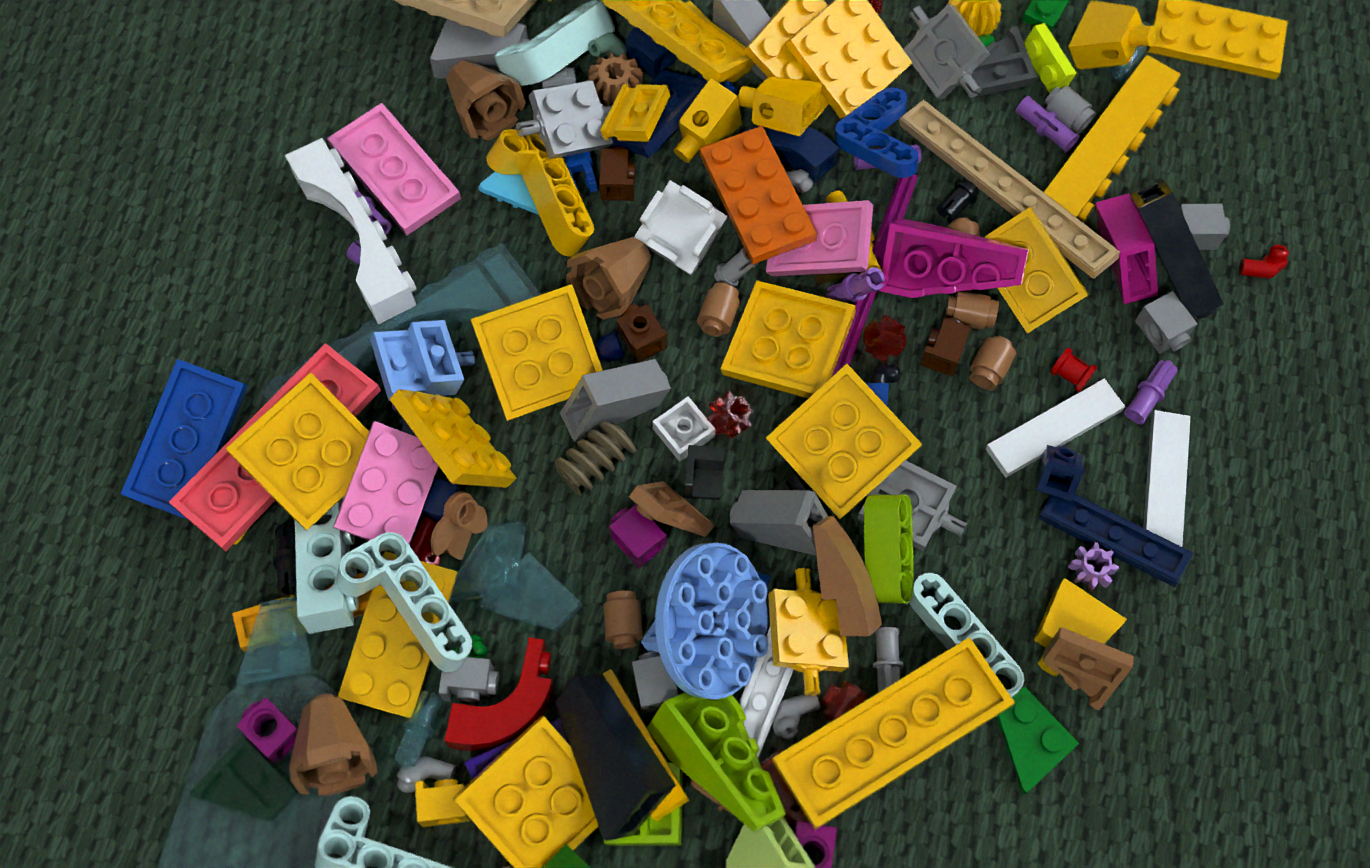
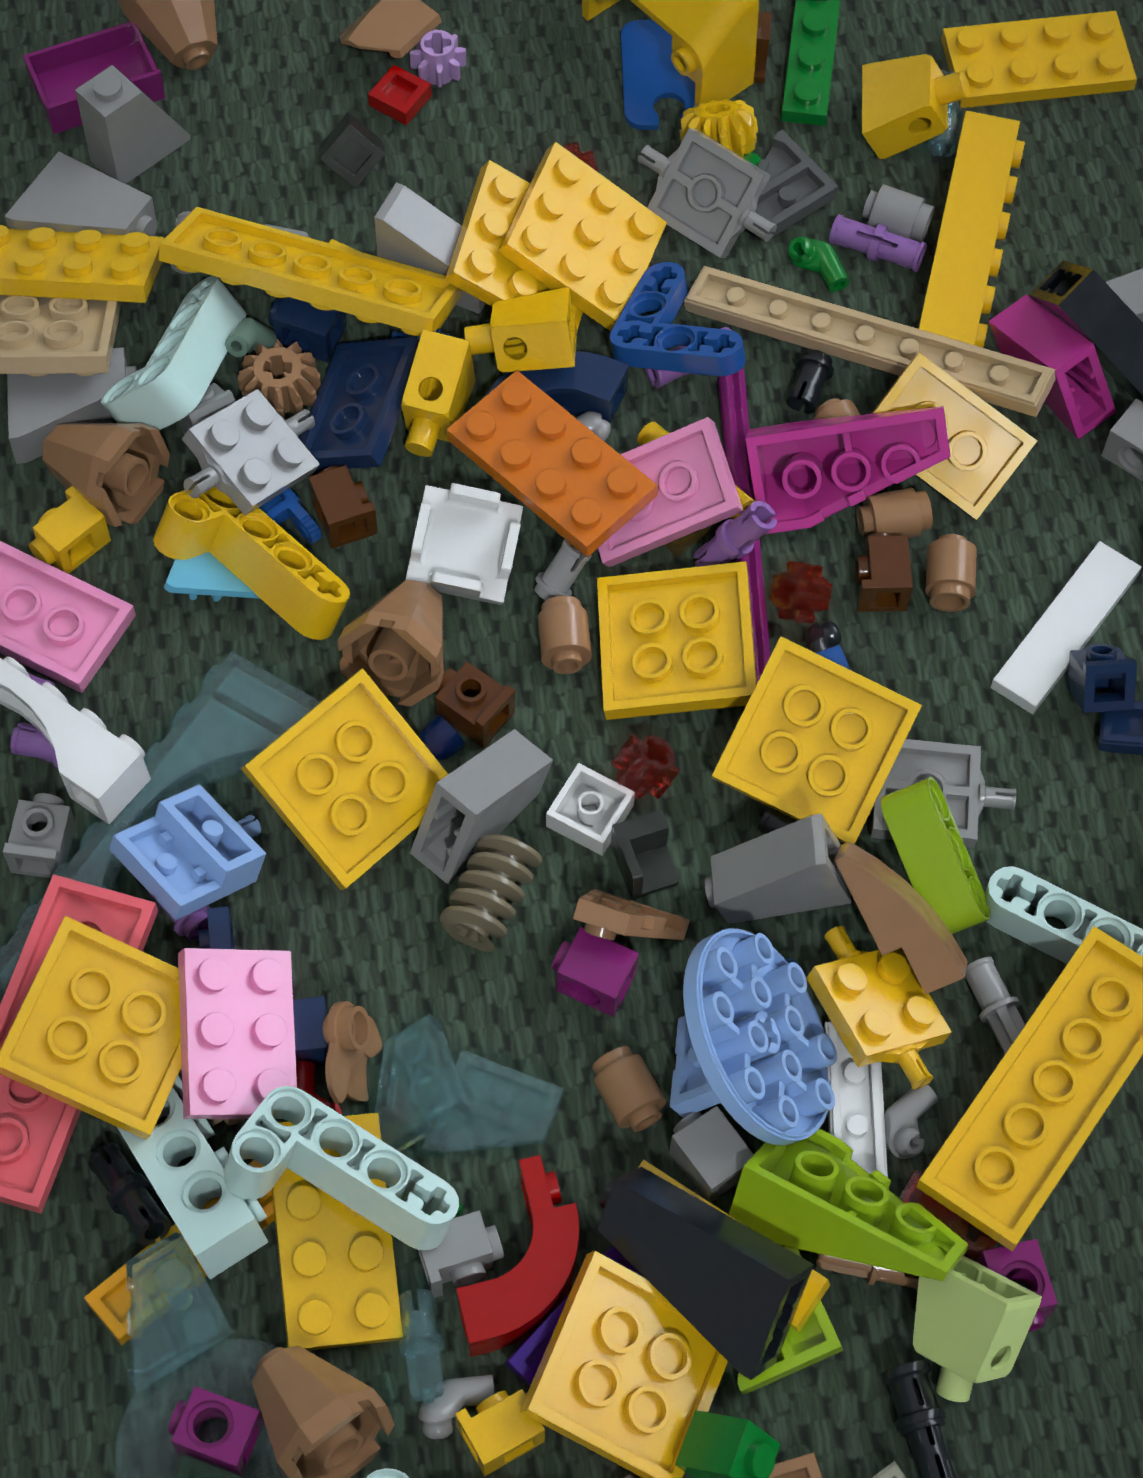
camera: 25 degrees left, 5 degrees down
(336, 324) = (43, 850): none -> light grey brick
(442, 132) = (69, 533): none -> yellow brick
(454, 439) = (295, 936): yellow plate -> none
(635, 112) = (337, 411): yellow plate -> none
(842, 699) = (964, 1077): clear red gear -> none
(1003, 121) = (819, 258): none -> green arm
(1048, 58) = (843, 158): neon yellow plate -> none
(1073, 370) = (1057, 544): red bush -> none

